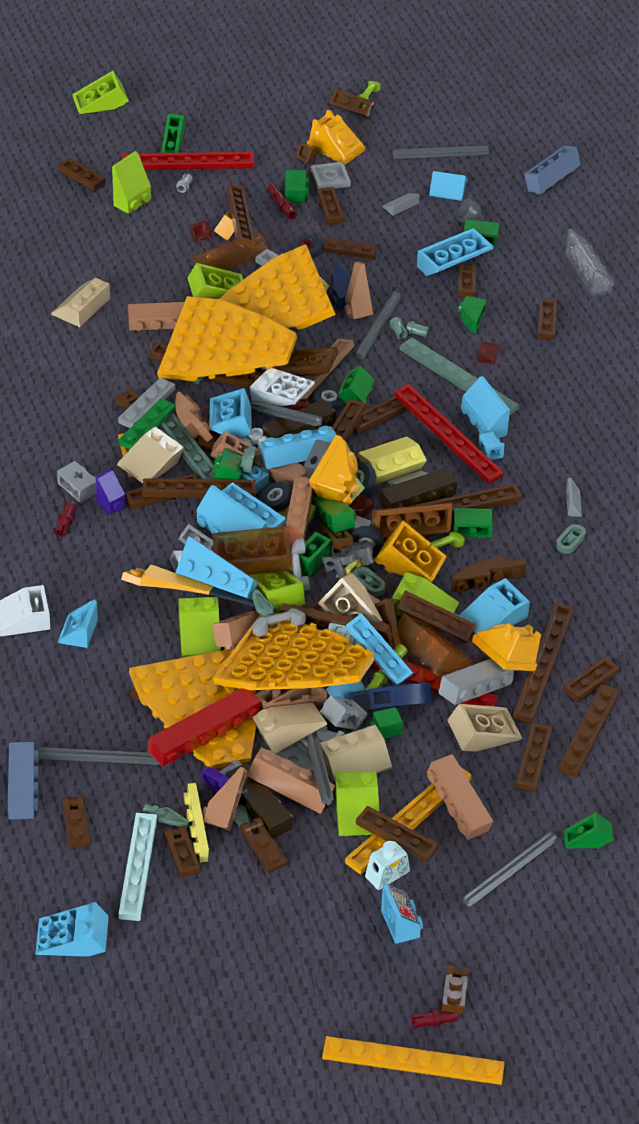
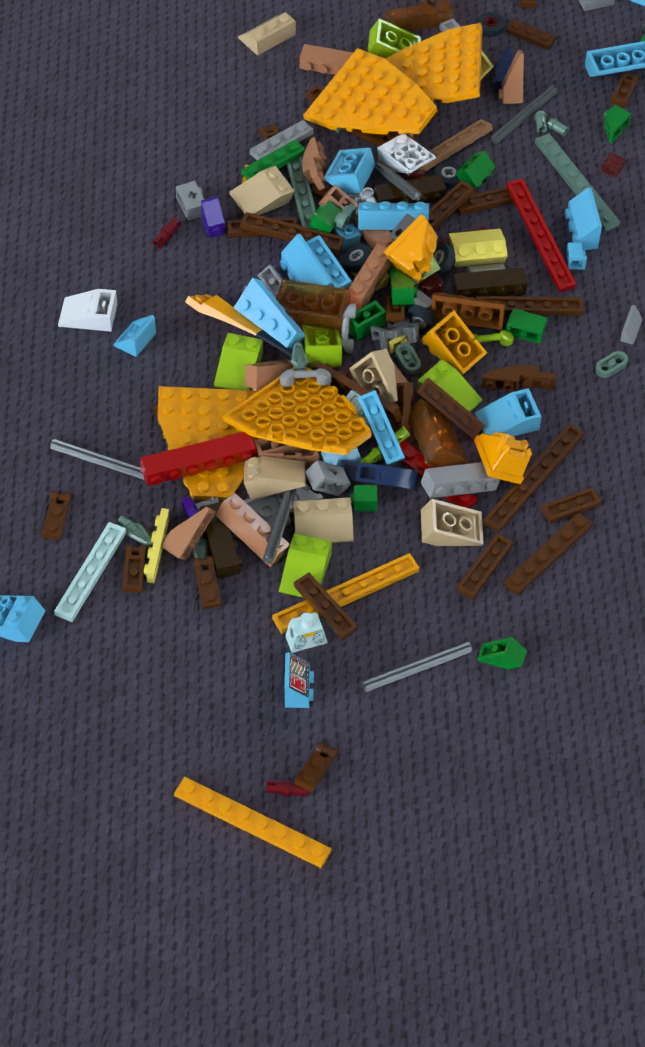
camera: 20 degrees right, 10 degrees up
(22, 780) = (25, 465): sand blue brick -> none
(310, 361) = (442, 135): reddish brown plate -> none
(459, 797) = (397, 586): nougat brick -> none

